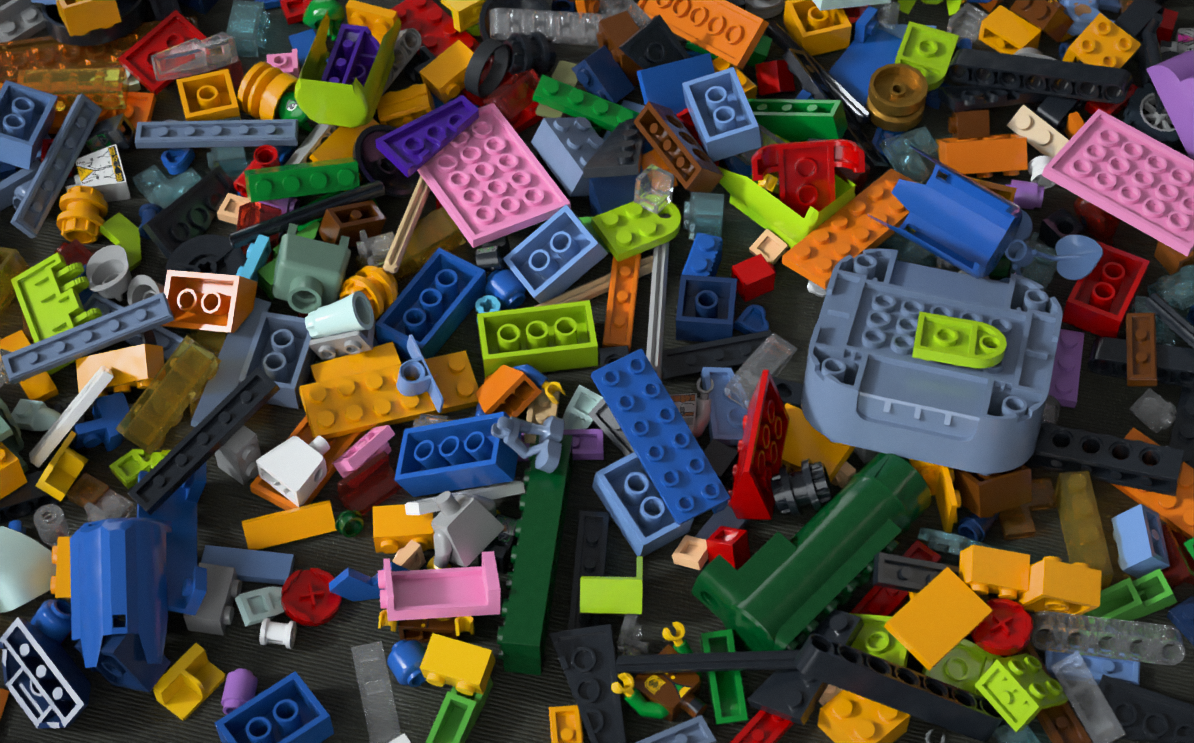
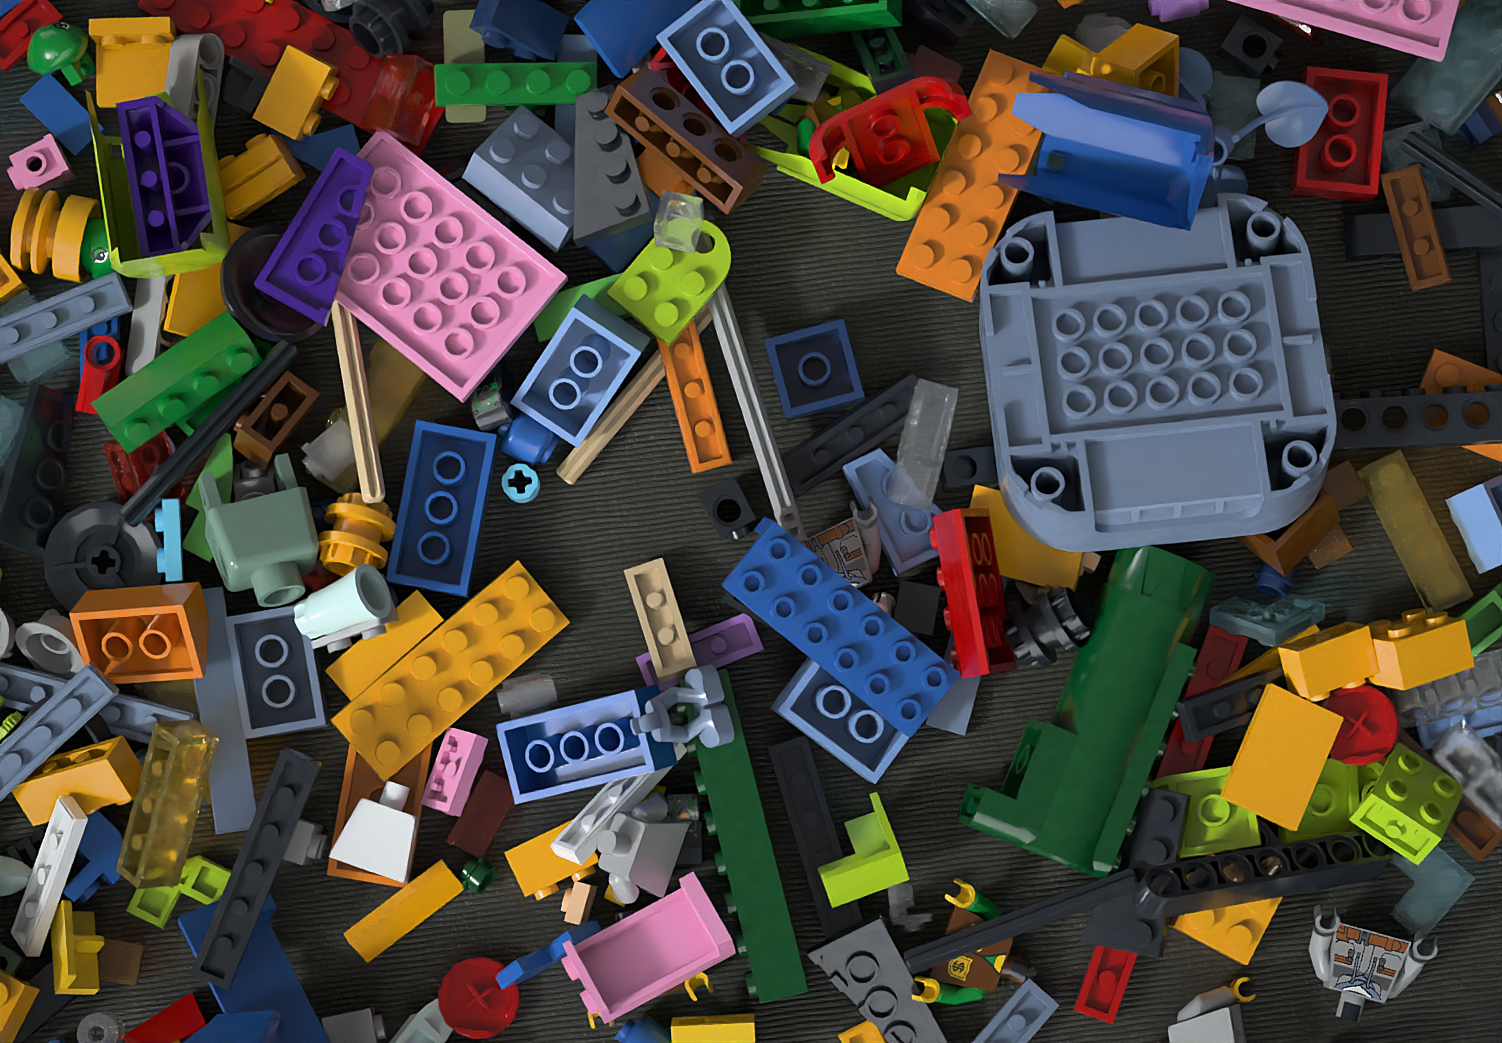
camera: 20 degrees left, 30 degrees up
(109, 506) = (159, 976): clear bracket -> none
(230, 208) = (88, 440): light nougat plate -> none
(252, 564) = (374, 983): medium blue tile -> none
(419, 370) = (491, 645): medium blue piece -> none
(477, 64) = (351, 82): black tyre -> none
(513, 390) = (606, 618): orange torso -> none
(539, 336) = (607, 507): lime brick -> none
(577, 411) = (706, 591): light aqua plate -> none
(691, 553) = (933, 750): light nougat plate -> none
(704, 214) = (758, 221): clear light blue brick -> none
(704, 256) = (779, 293): blue brick -> none
(724, 686) = (1022, 886): green slope -> none
(730, 544) = (978, 732): red panel -> none
(752, 320) = (879, 354): blue tile -> none
(754, 277) = (856, 284): red brick -> none
(769, 246) = (858, 227): light nougat plate -> none
(940, 483) = (1237, 565): light orange bracket -> none
(958, 341) = (1191, 379): lime plate -> none
(1067, 368) = (1318, 236): medium lavender plate -> none
(1154, 411) = (1455, 305): clear bracket -> none

